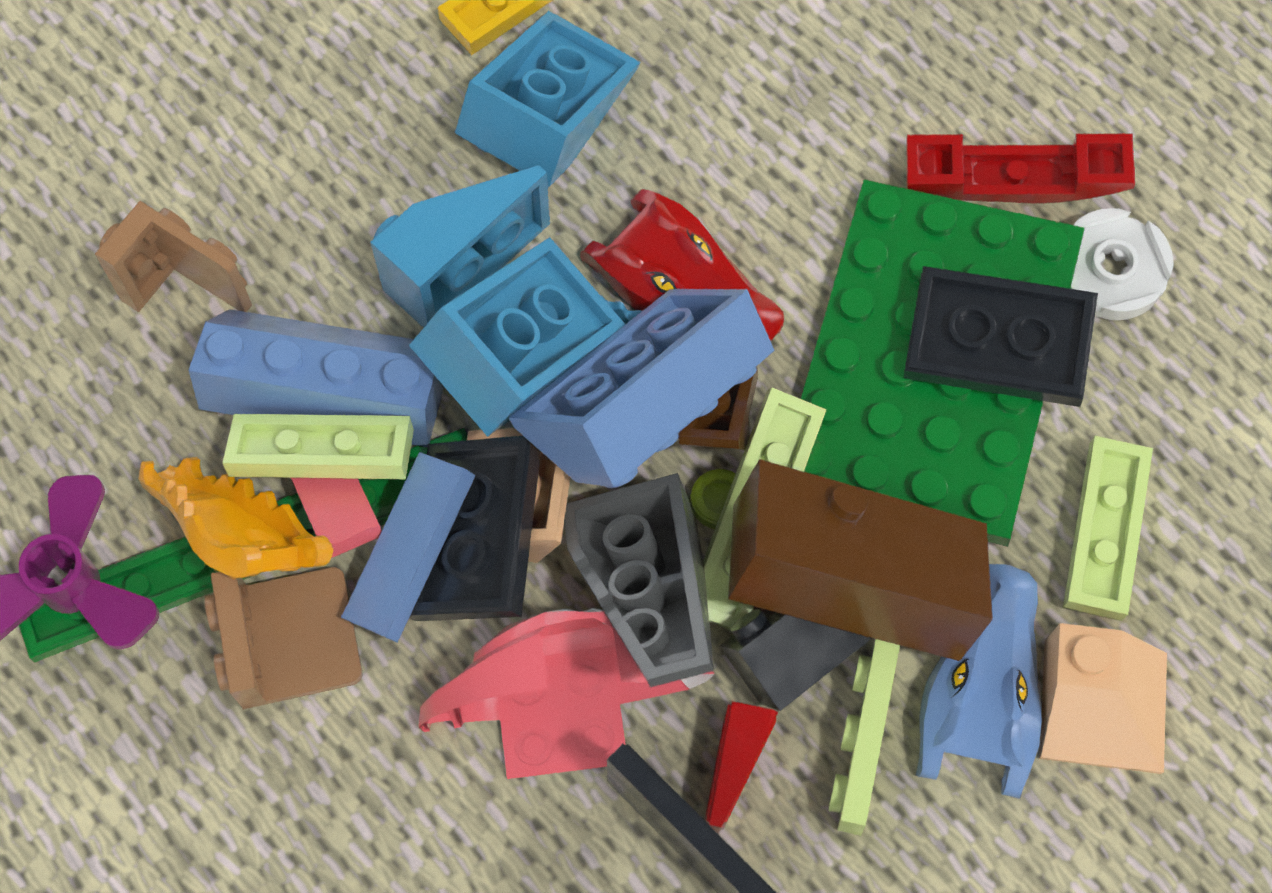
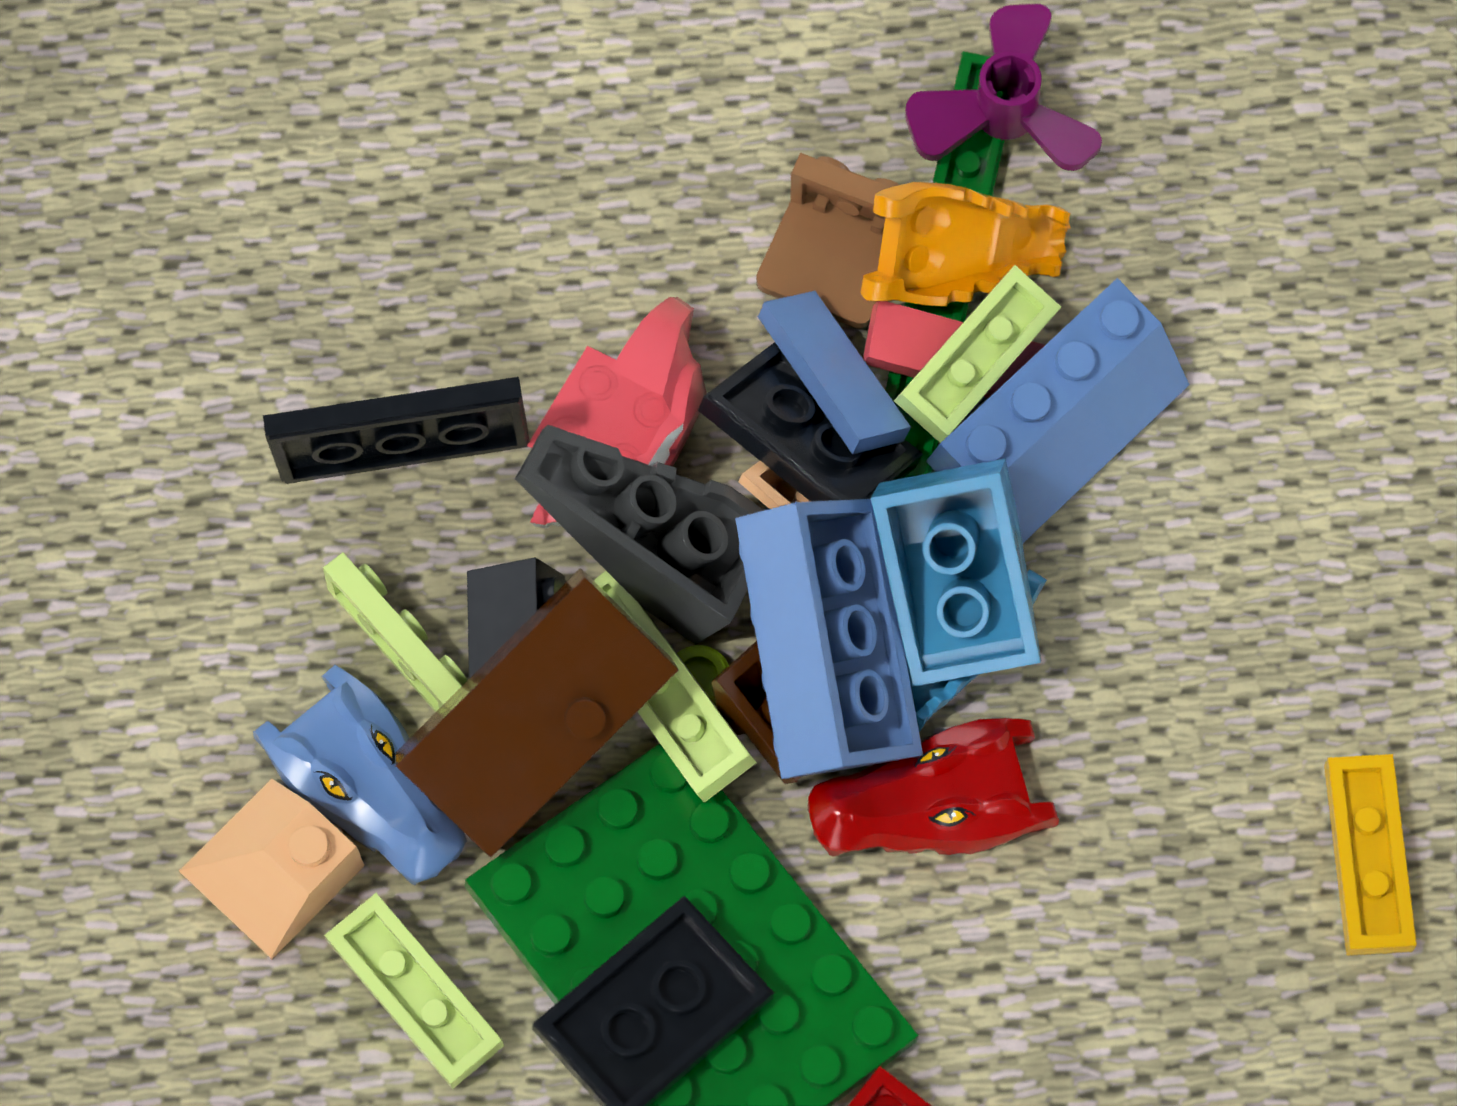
camera: 130 degrees right, 0 degrees up
(153, 244) = (1259, 355): medium nougat bracket -> none
(458, 239) = (1094, 559): dark azure slope -> none
(544, 96) = (1222, 798): dark azure slope -> none
(740, 745) = (467, 529): red slope -> none

